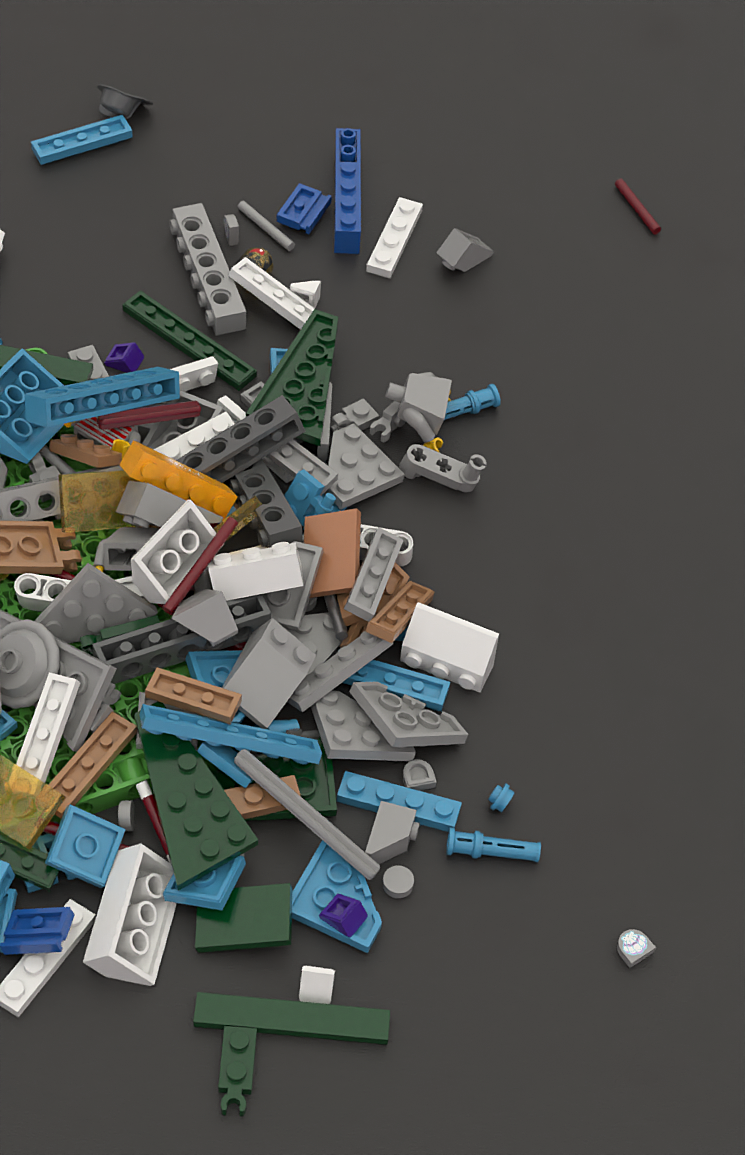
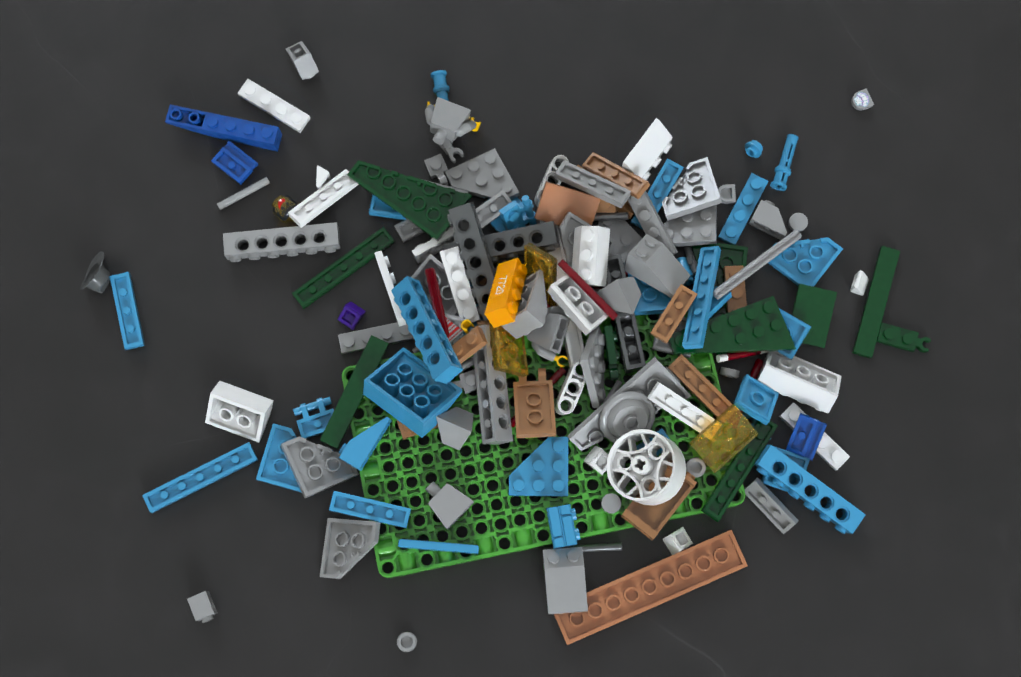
camera: 75 degrees left, 25 degrees up
(231, 229) = (245, 218): light grey tile -> none
(344, 914) = (821, 258): dark purple slope -> none
(457, 475) = (492, 132): light grey beam -> none

